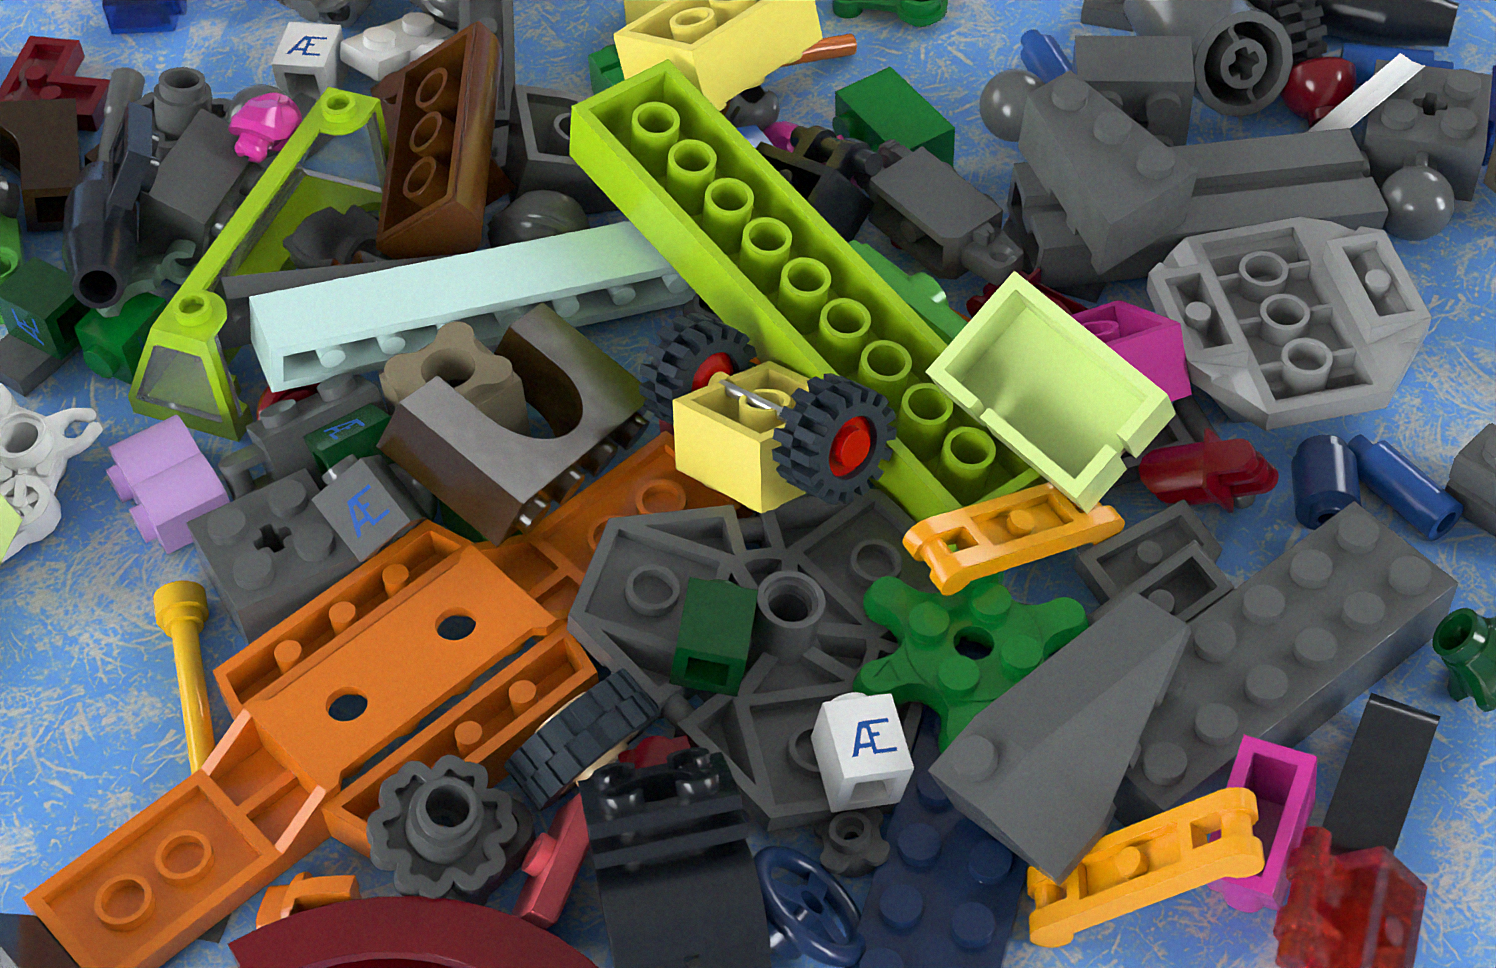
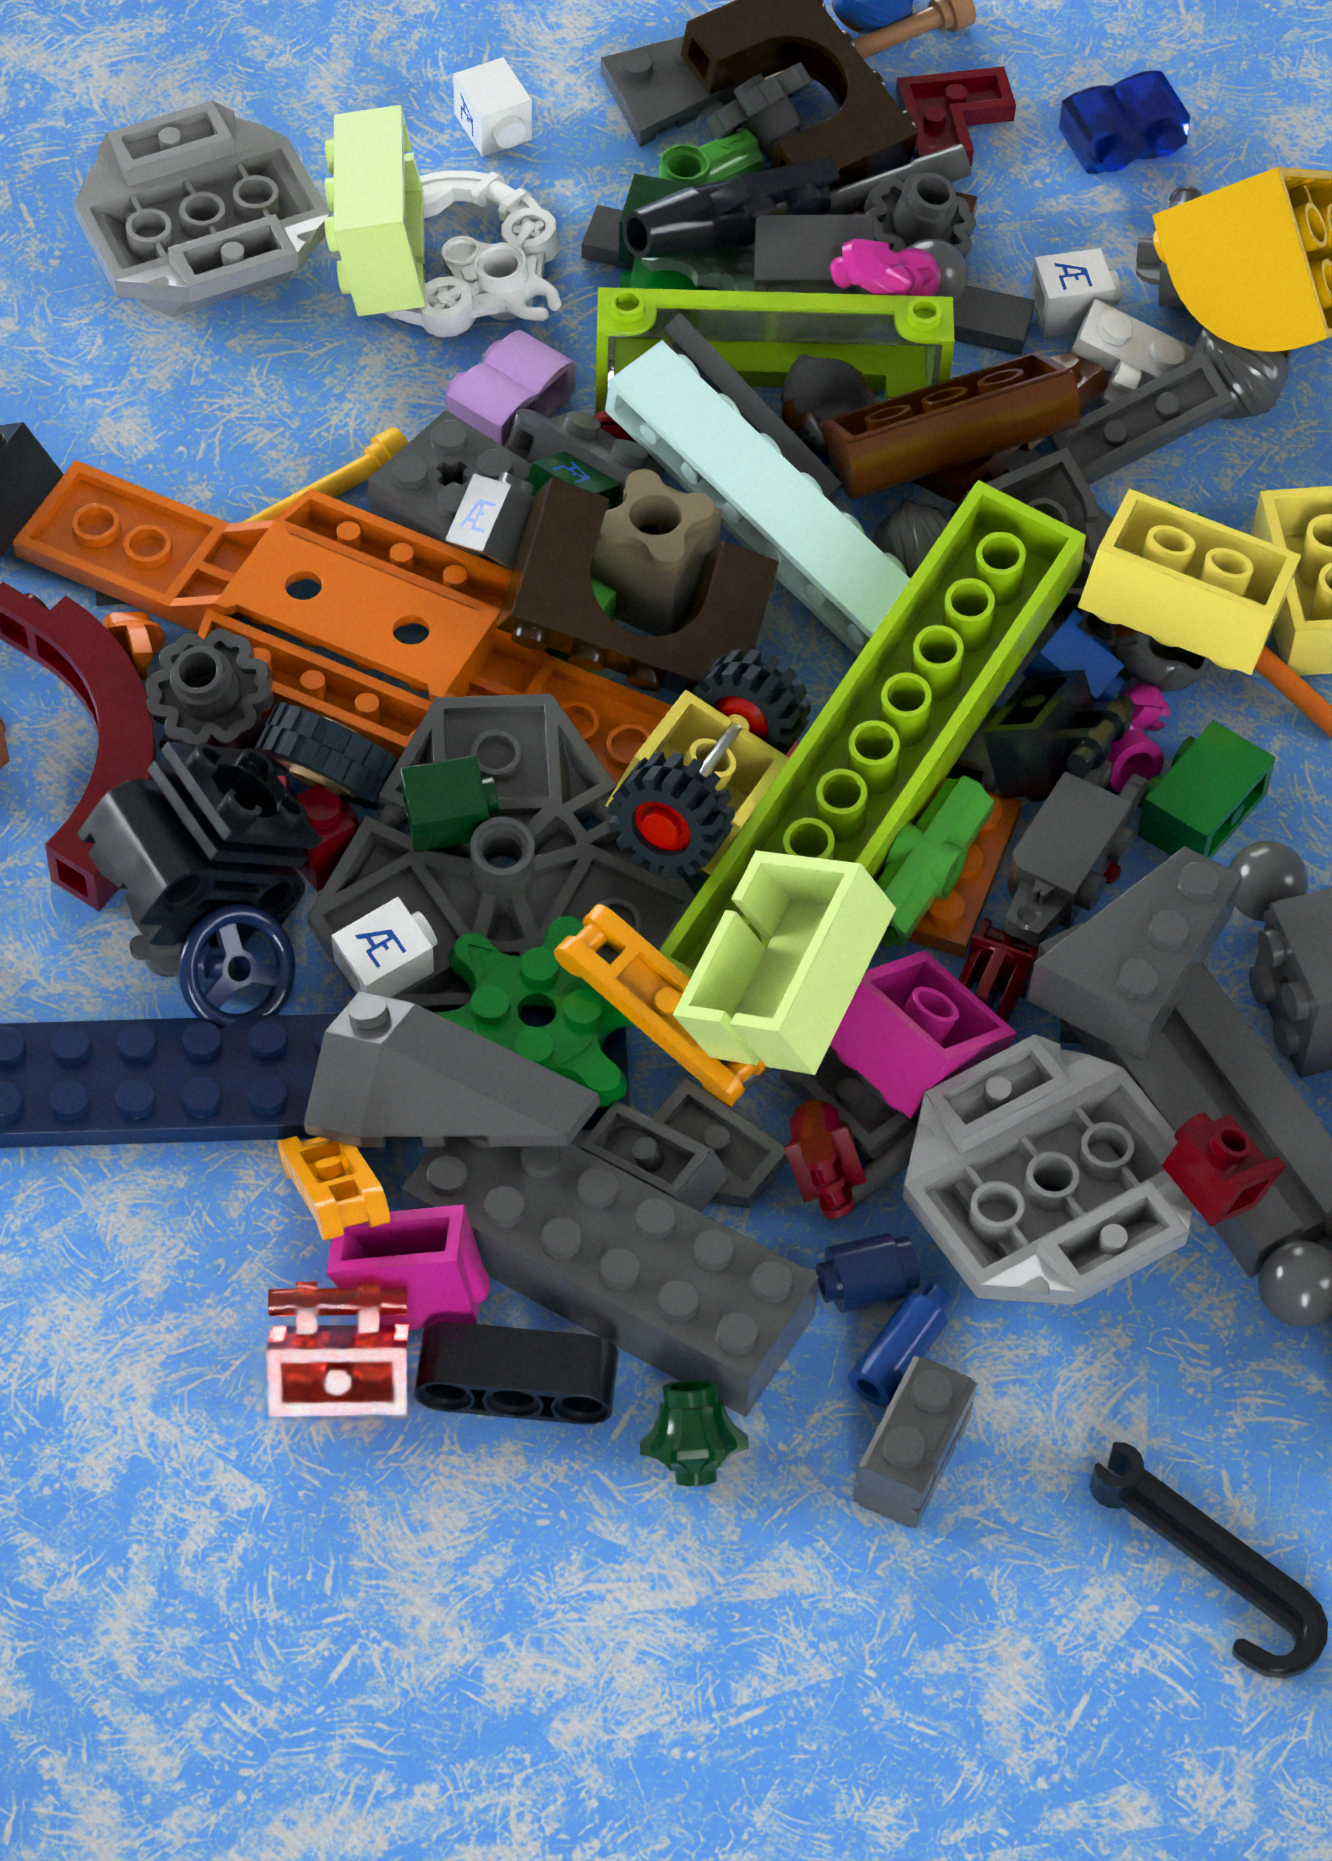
camera: 65 degrees right, 5 degrees up
(855, 856) = (321, 990): dark grey plate -> none
(1331, 190) = (1220, 1167): none -> dark red brick

